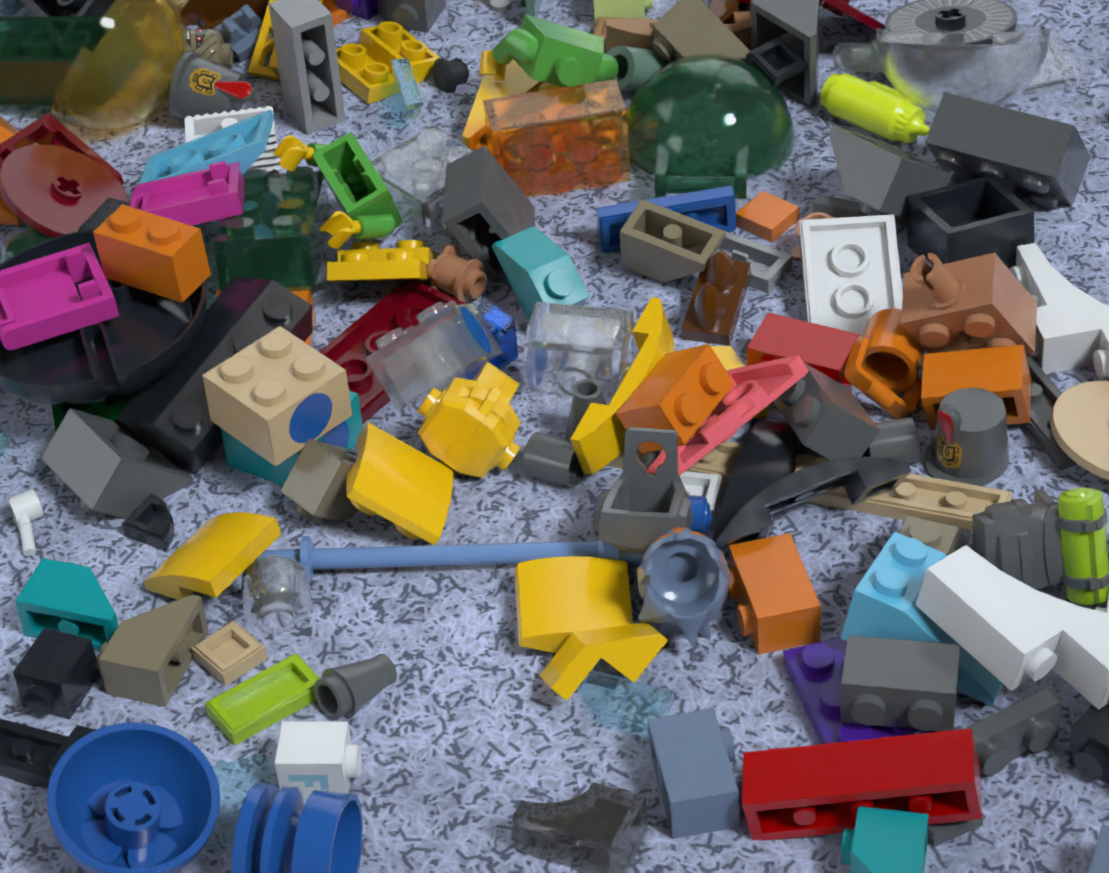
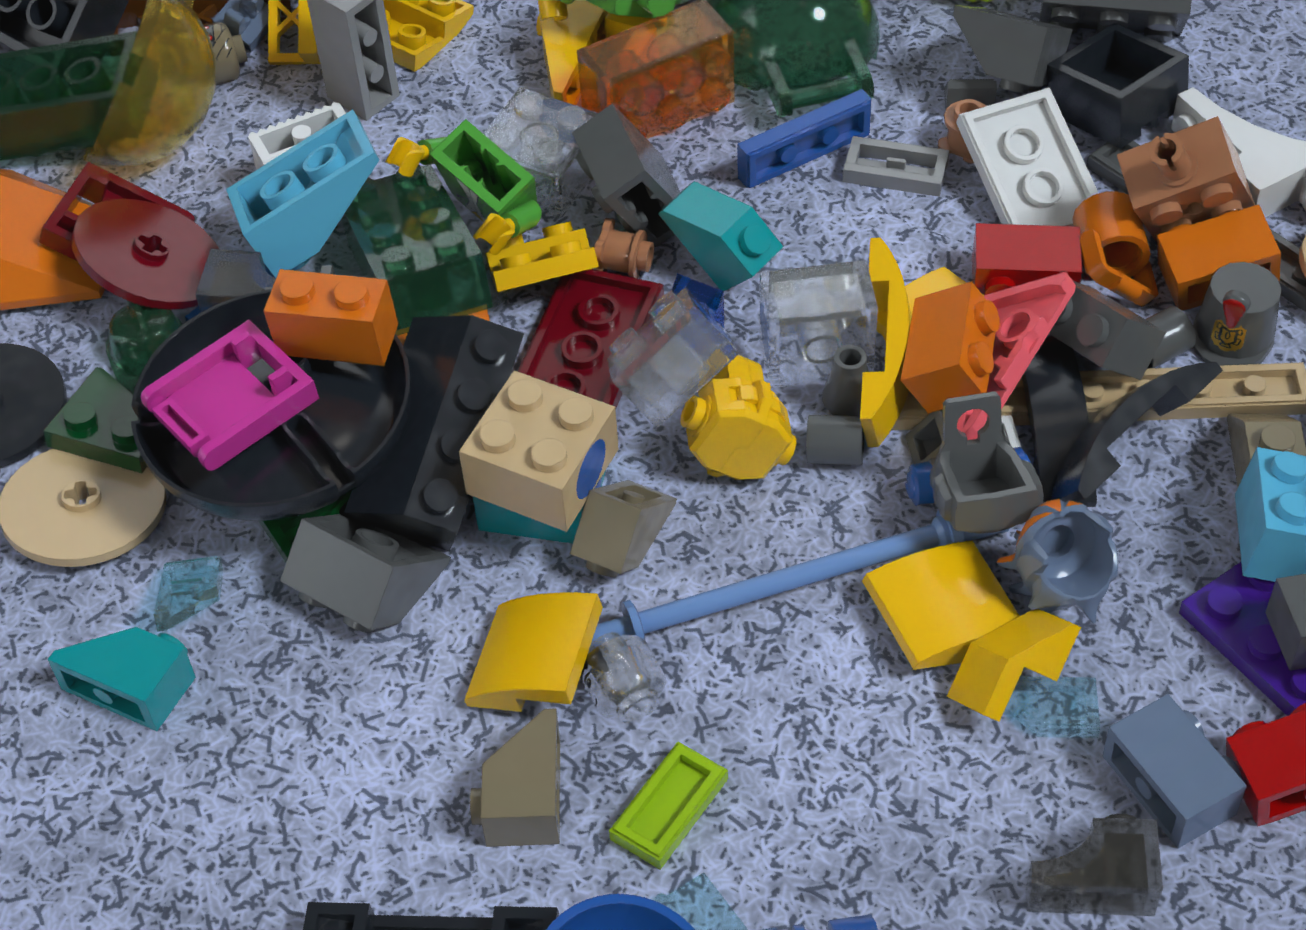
camera: 20 degrees left, 10 degrees up
(25, 509) = (283, 644): white hand -> none
(56, 673) = (428, 843): black brick -> none
(66, 600) = (404, 755): teal slope -> none
(151, 524) = (434, 624): black tile -> none
(194, 195) = (314, 234): dark pink container -> none
(206, 87) = (250, 96): dark grey hat -> none
(229, 653) = (600, 759): tan tile -> none
(317, 756) = (773, 868): white brick -> none
(353, 685) = (761, 766): dark grey cone -> none
(400, 485) = (698, 514): yellow slope -> none
(406, 89) = (458, 49): clear light blue tile -> none
(449, 74) = (488, 21): black piece -> none
(666, 243) = (833, 168): dark tan slope -> none
(717, 300) = (903, 215): reddish brown tile -> none
(767, 216) = (897, 111): orange tile -> none
(773, 594) = (1153, 542): orange brick -> none

